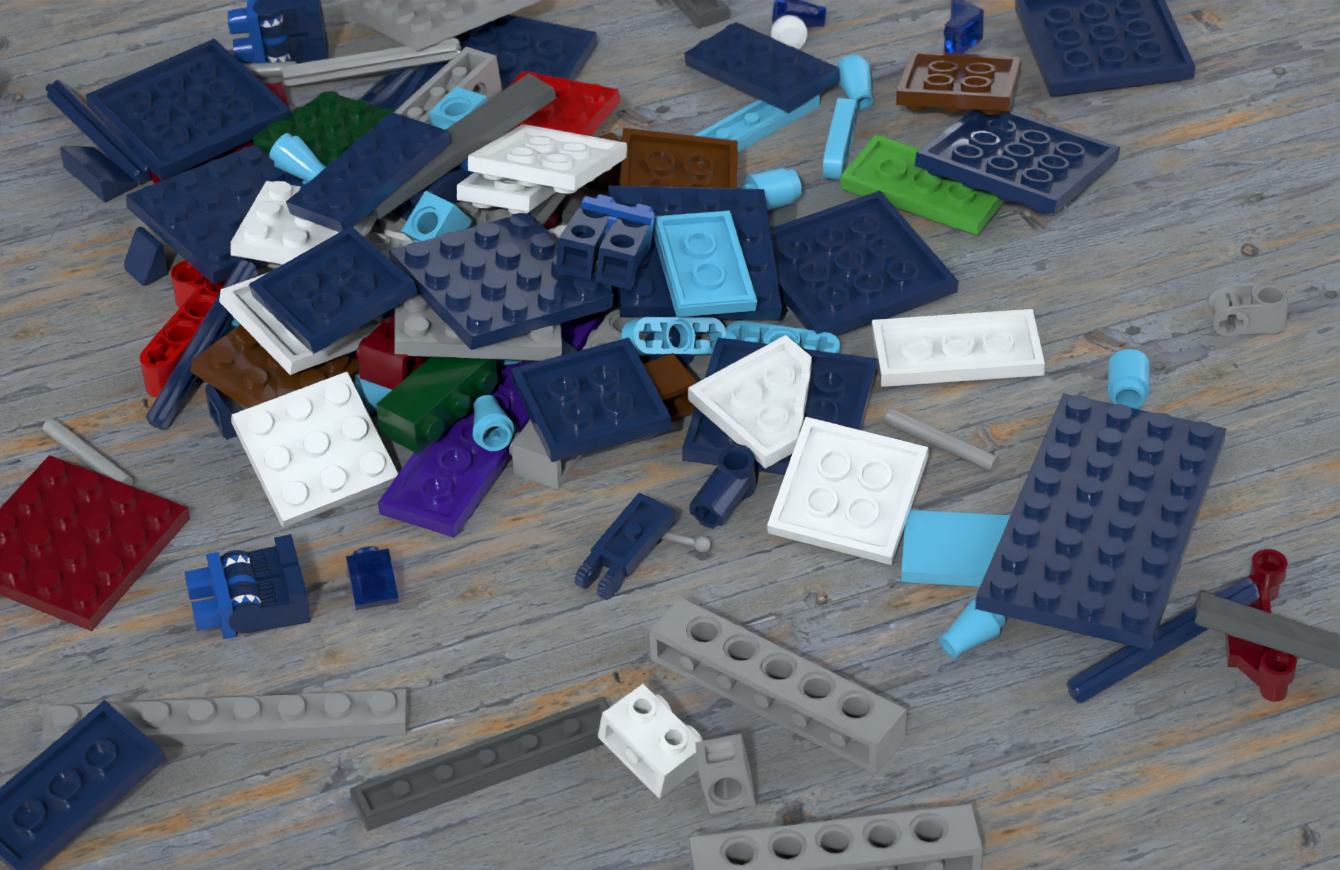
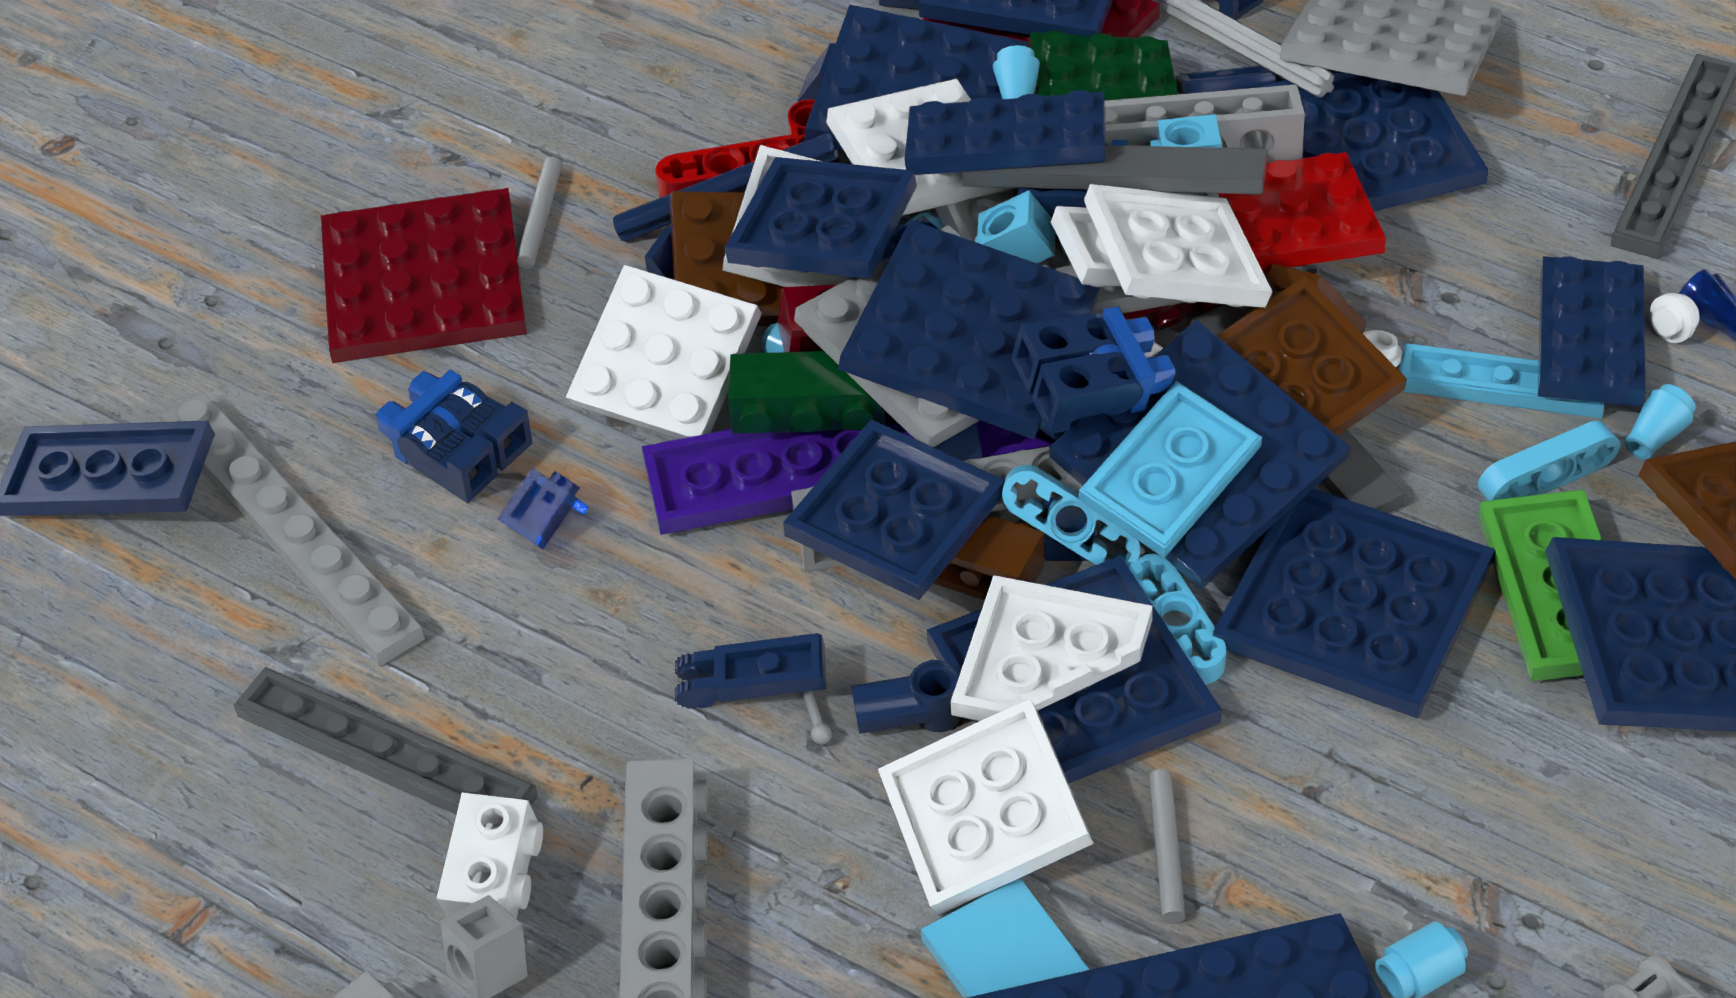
camera: 55 degrees right, 5 degrees up
(491, 425) = (805, 457): medium azure cone -> none
(779, 184) = (1385, 456): medium azure brick -> none
(957, 347) = (1320, 772): white plate -> none

